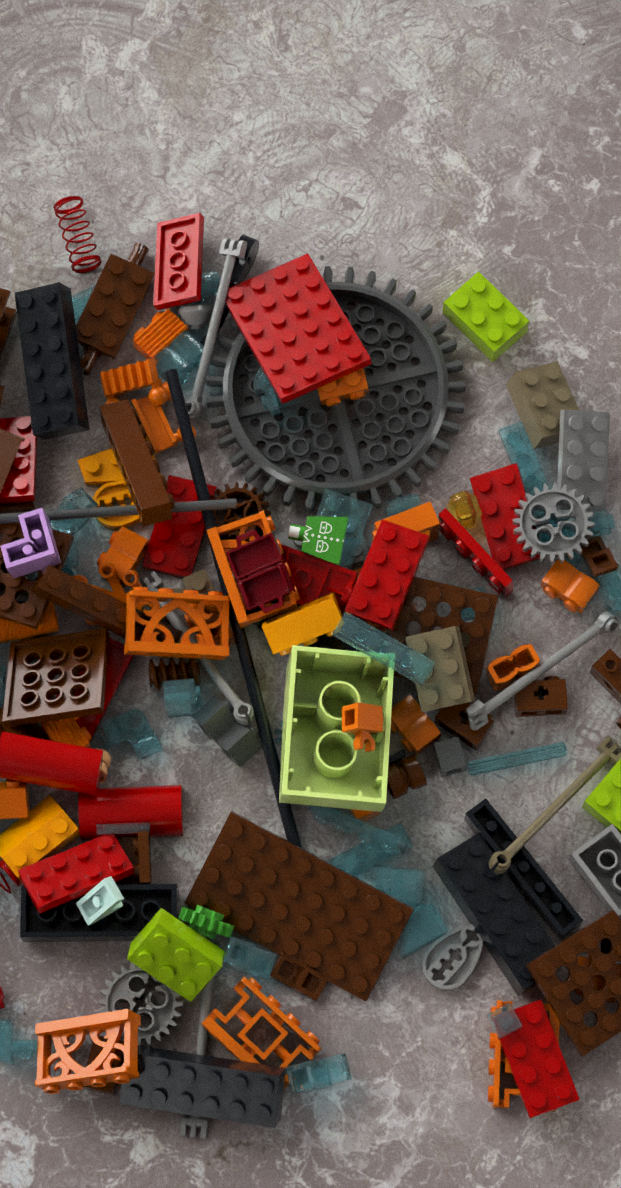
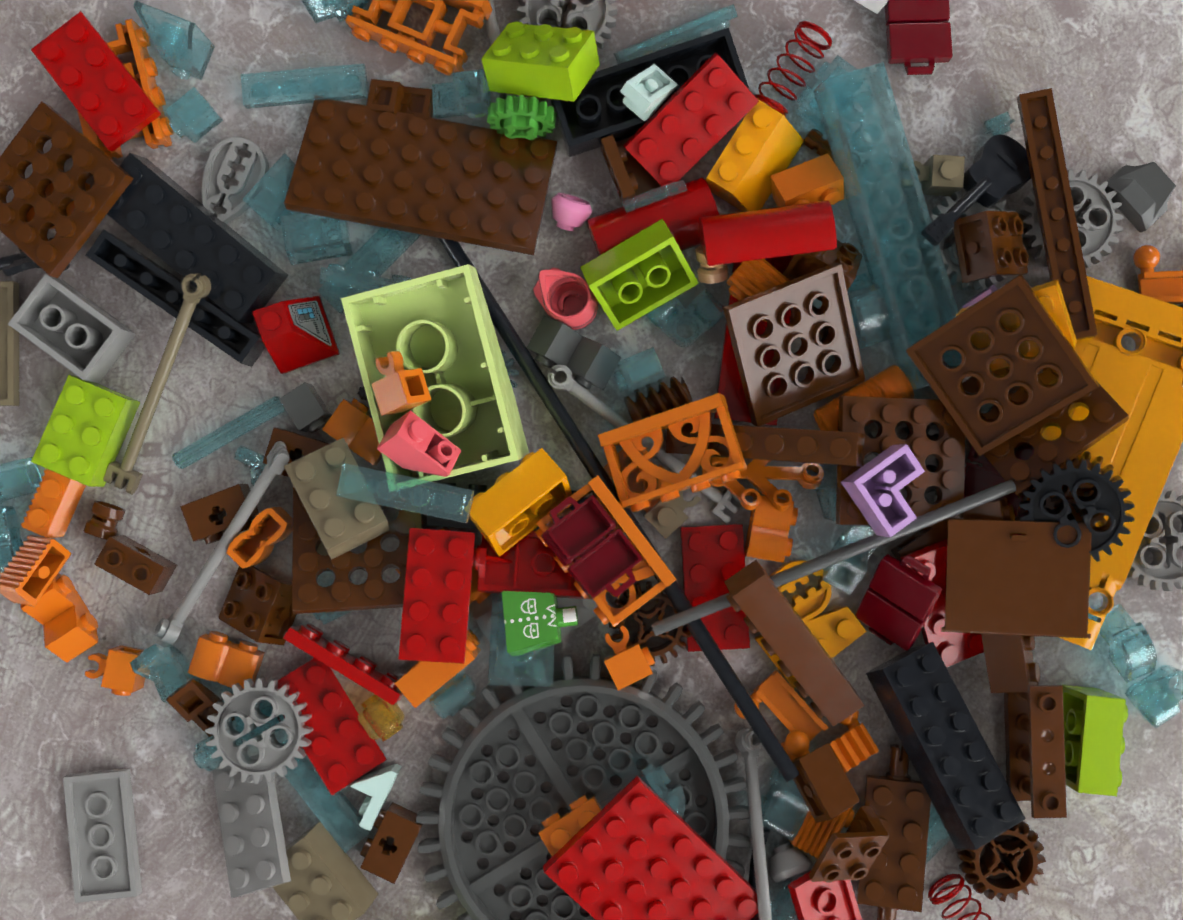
camera: 160 degrees right, 15 degrees up
(47, 470) = (898, 601): none -> dark red piece
(59, 267) = (1018, 878): none -> reddish brown gear
(61, 955) = (688, 31): none -> clear light blue plate
(144, 308) = (851, 853): none -> reddish brown bracket
(149, 360) = (824, 784): none -> reddish brown panel
(156, 769) = (639, 275): none -> lime brick
(192, 843) = (570, 211): none -> bright pink cone
(219, 776) = (566, 298): none -> coral helmet
(262, 487) = (627, 663): none -> orange brick
(363, 678) = (418, 446): none -> coral slope
(371, 1012) = (304, 85): none -> clear light blue plate
(407, 775) = (343, 368): reddish brown wheel -> none
(438, 818) = (296, 333): none -> red slope
(463, 1075) = (177, 41): none -> clear light blue slope
(469, 1015) = (193, 116): none -> clear light blue brick
(481, 459) = (378, 786): none -> light aqua slope
(489, 406) = (384, 859): none -> reddish brown brick
(501, 726) = (253, 460): none -> clear light blue arm
(504, 1020) = (137, 104): clear light blue plate -> none
(531, 619) = (259, 606): none -> reddish brown bracket

